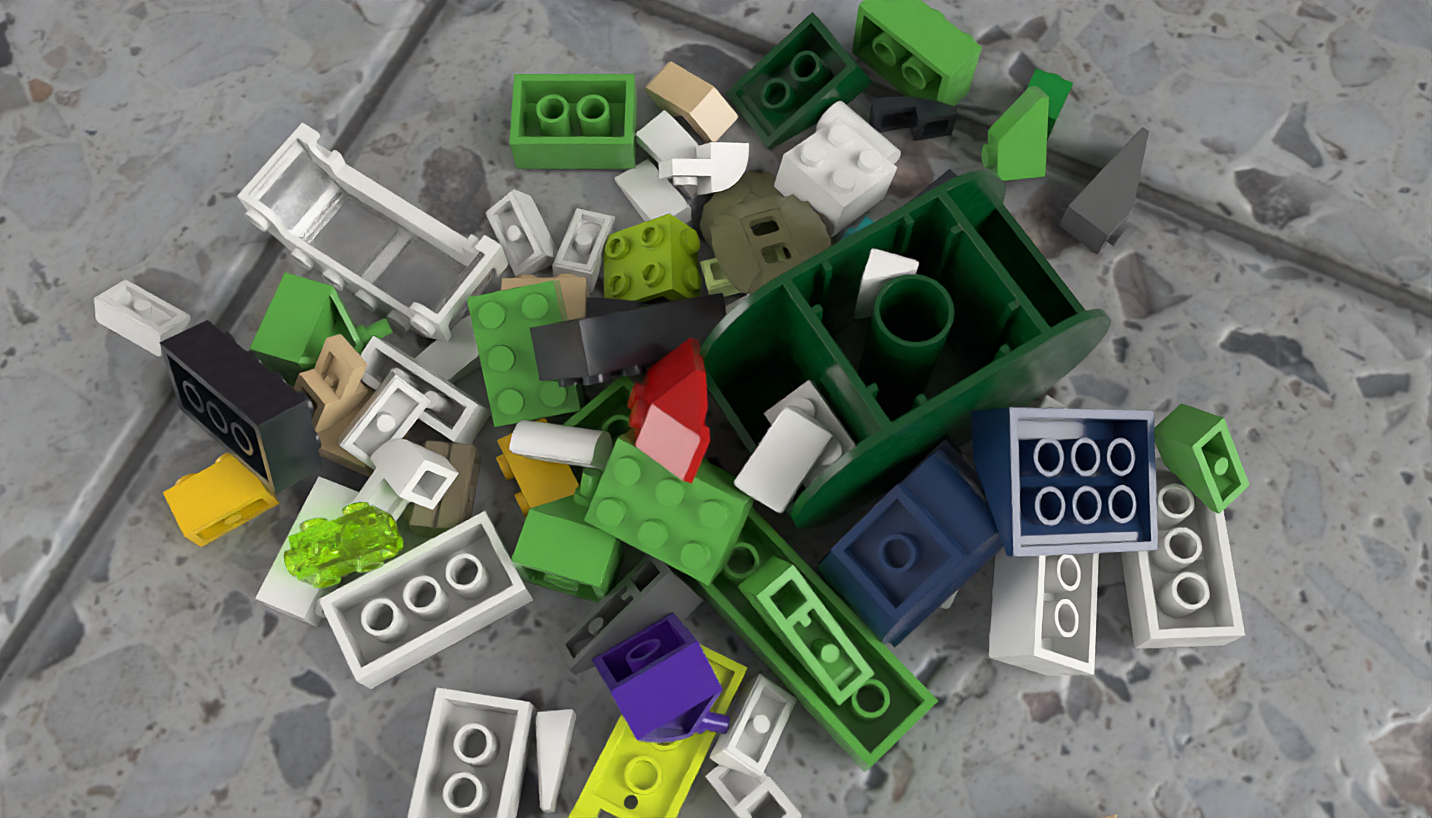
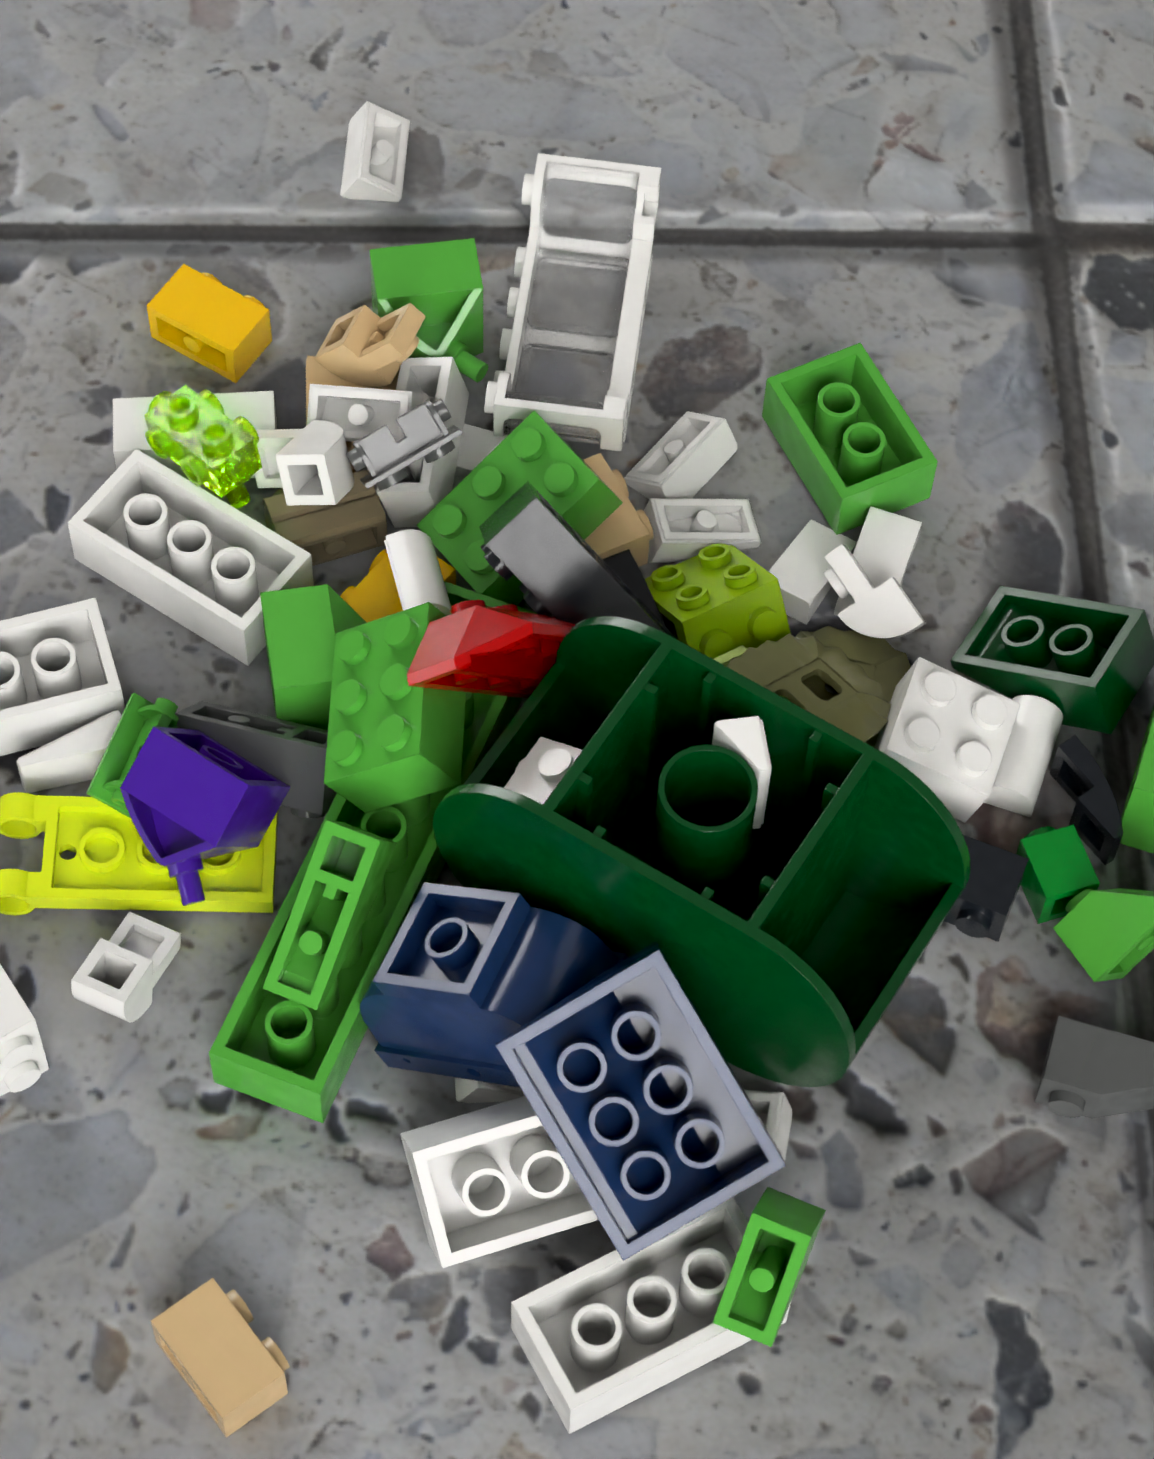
camera: 60 degrees right, 10 degrees down
(243, 405) = (309, 279): black brick -> none
(441, 422) = (423, 437): none -> hinge
(586, 716) = (126, 744): none -> bright green hinge
(693, 98) = (957, 551): tan slope -> none
(754, 727) = (205, 935): white slope -> none
(784, 458) = (500, 757): white slope -> none
(953, 152) = (1055, 870): none -> green brick

